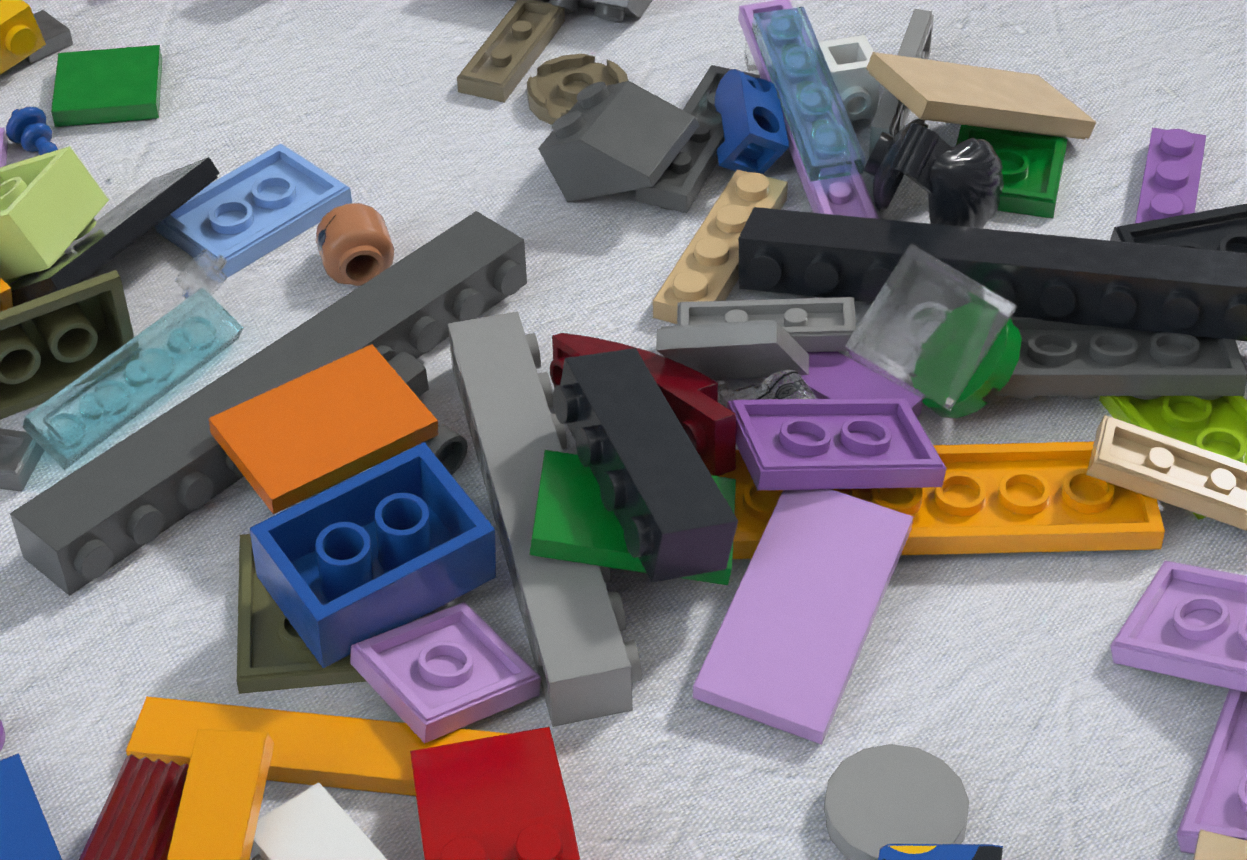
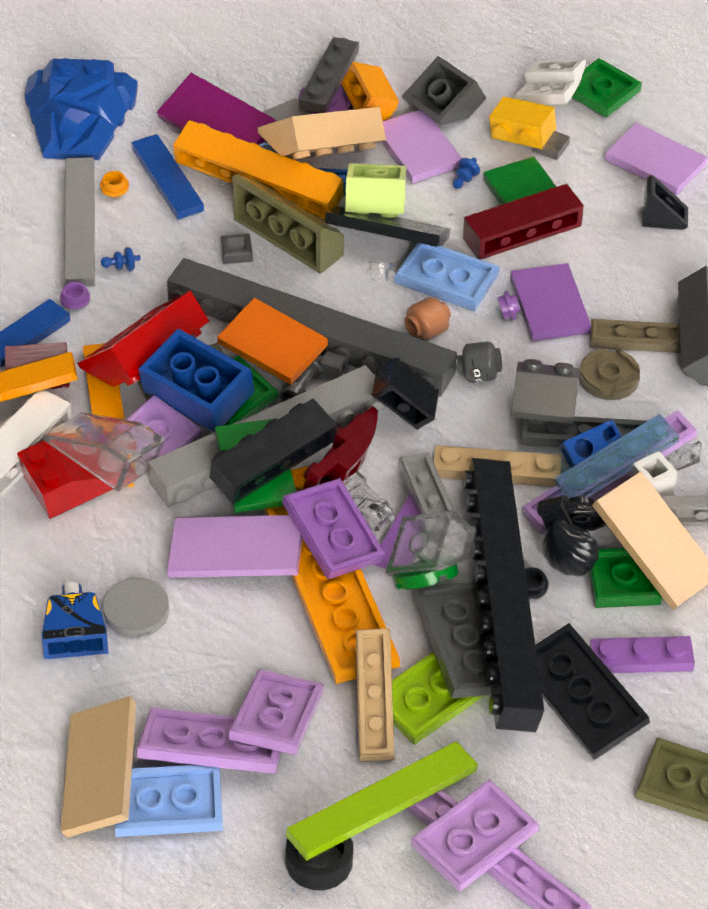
camera: 70 degrees right, 5 degrees up
(132, 378) = (298, 271): clear light blue plate -> none
(195, 628) = (126, 352): none -> red slope
(198, 92) = (523, 221): none -> dark red brick
(380, 150) = (509, 305): none -> medium lavender plate
(389, 114) = (550, 302): none -> medium lavender tile
(486, 733) = (107, 447): none -> clear slope
(498, 193) = (480, 362): none -> dark grey head
(543, 287) = (406, 393): none -> black brick
(733, 349) = (383, 475): light grey tile -> none

